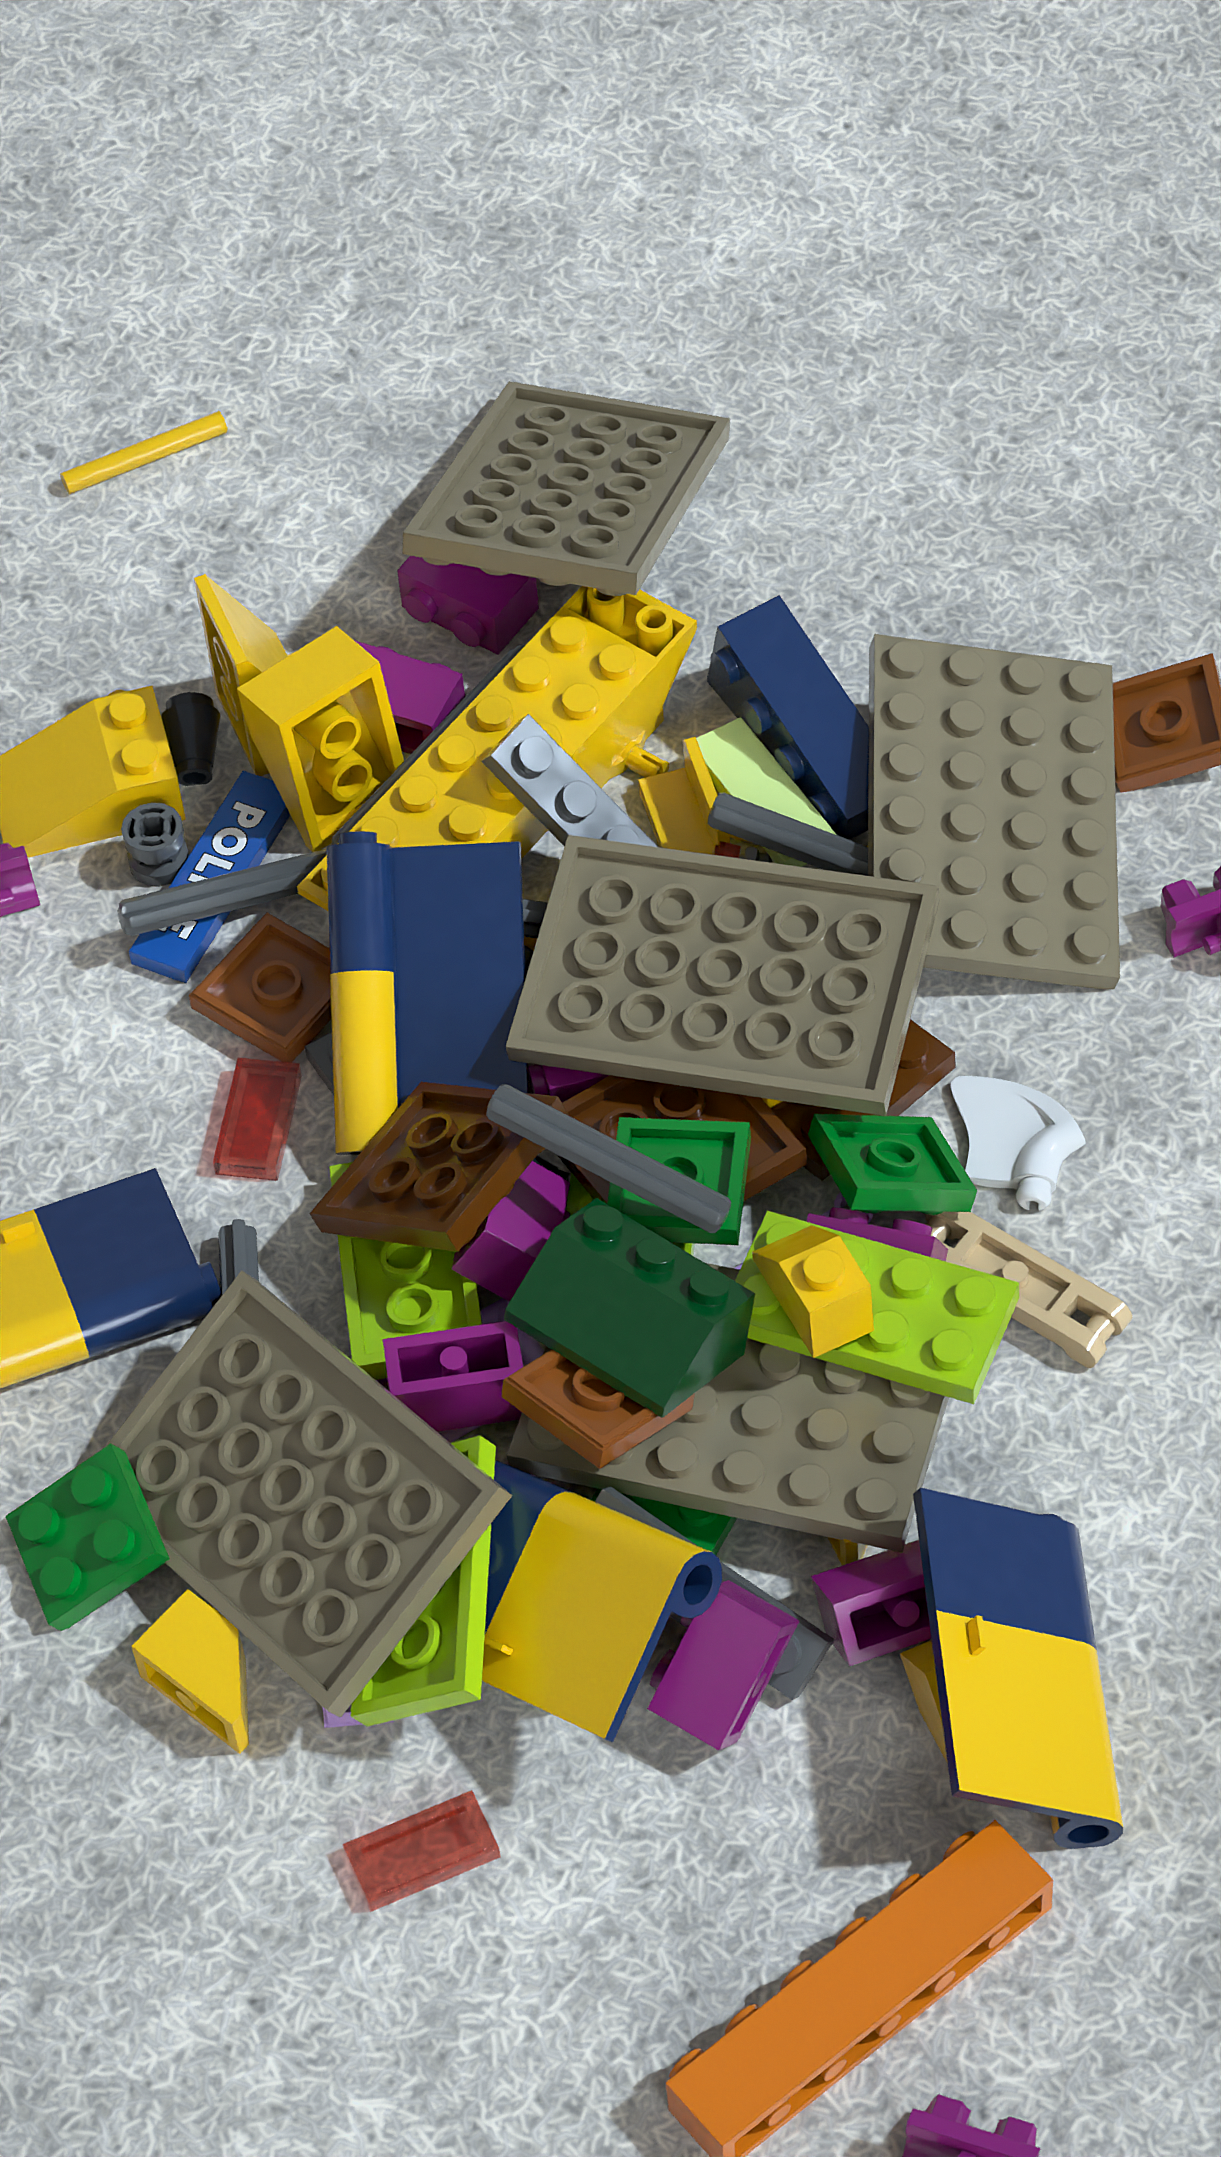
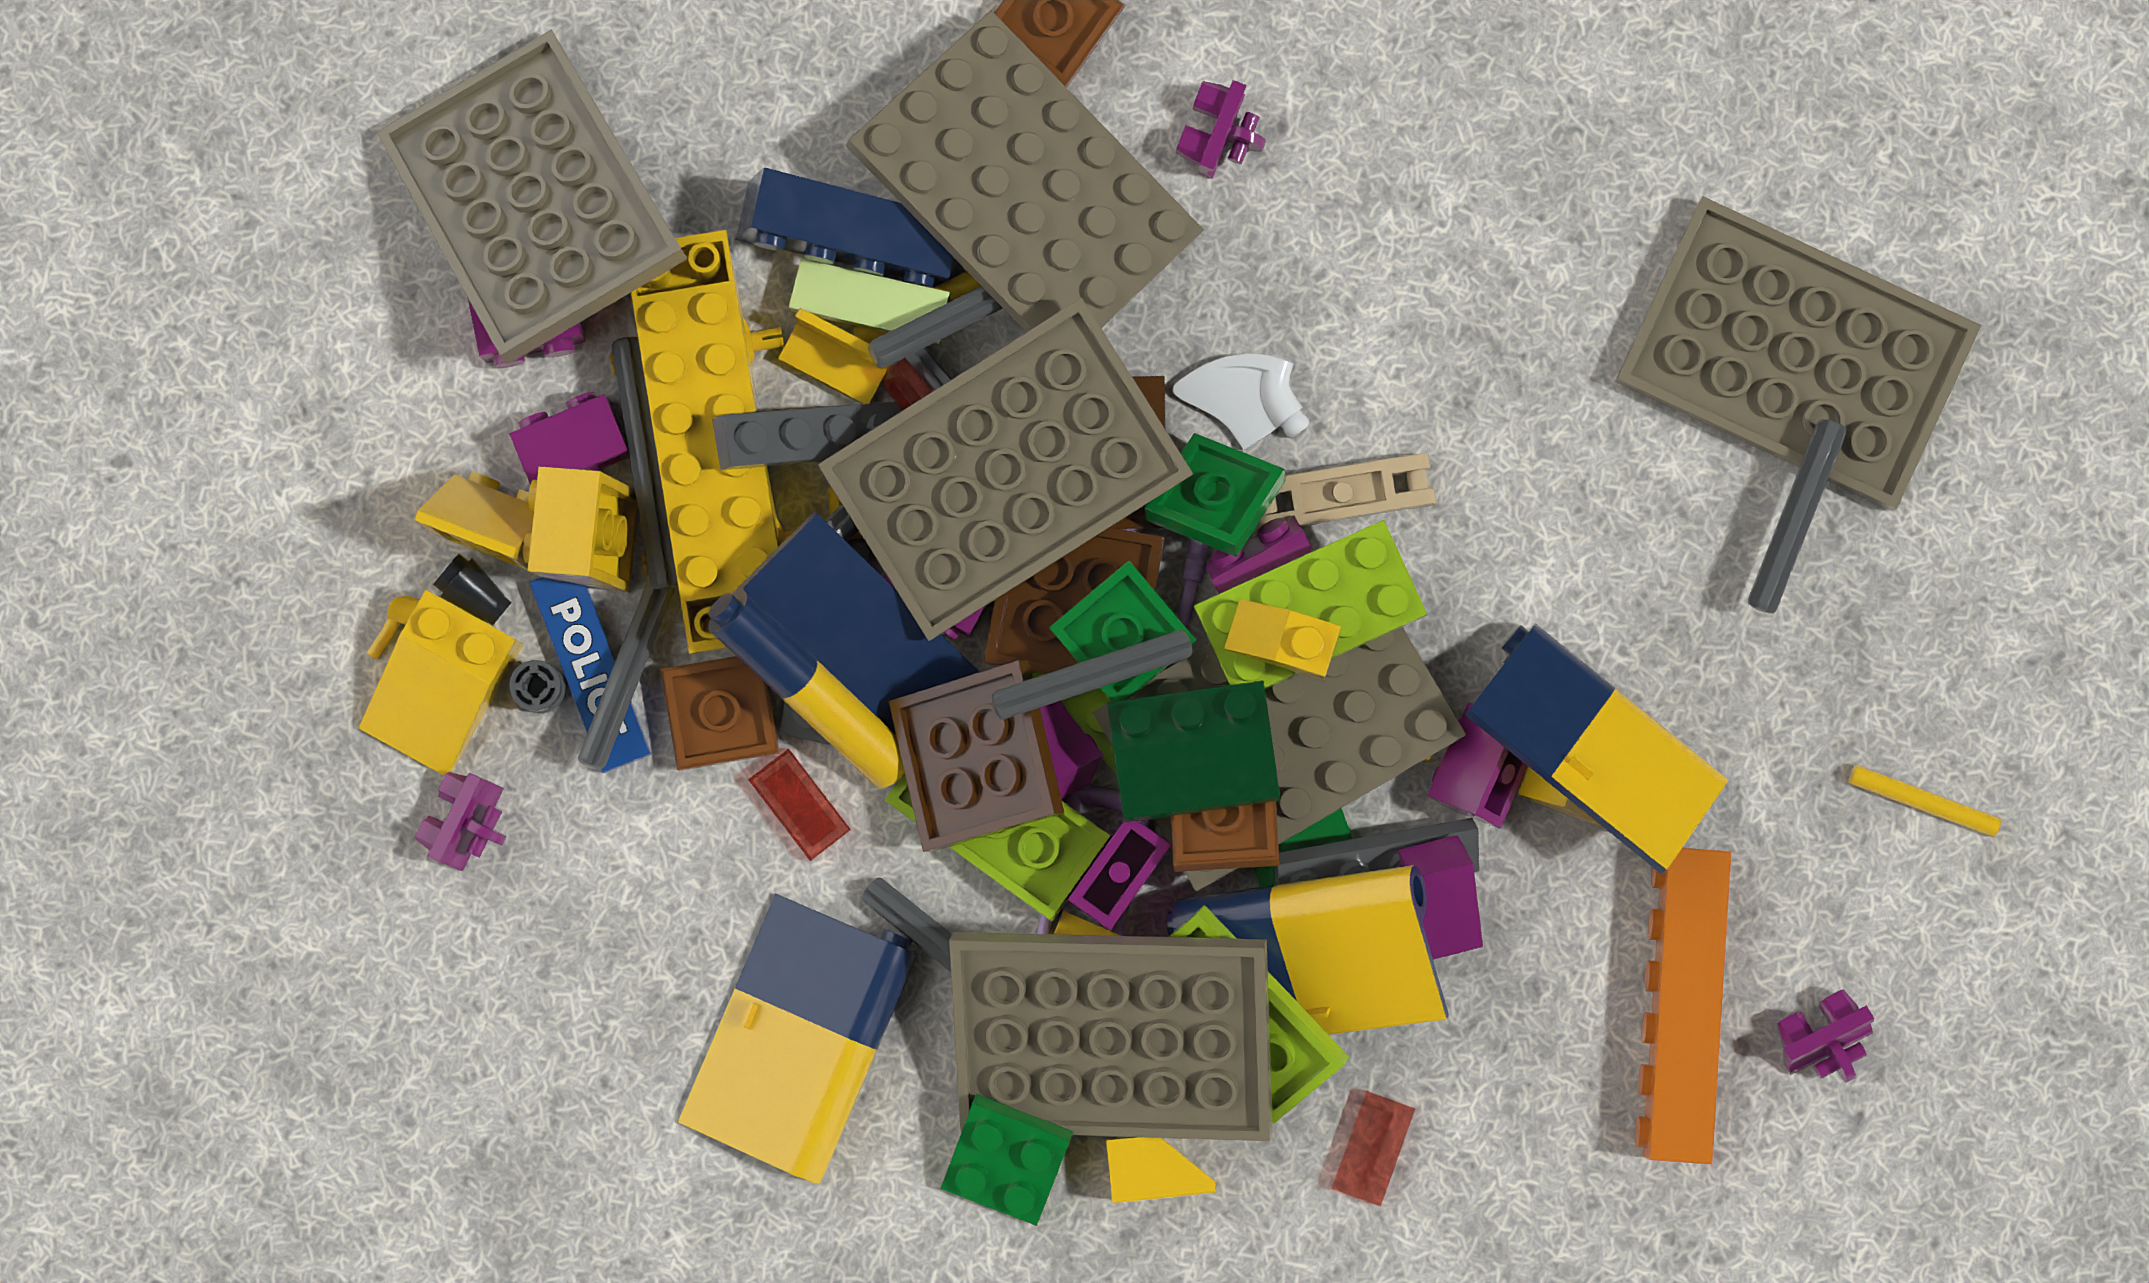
camera: 50 degrees left, 30 degrees up
(143, 452) = (192, 404): yellow bar -> none

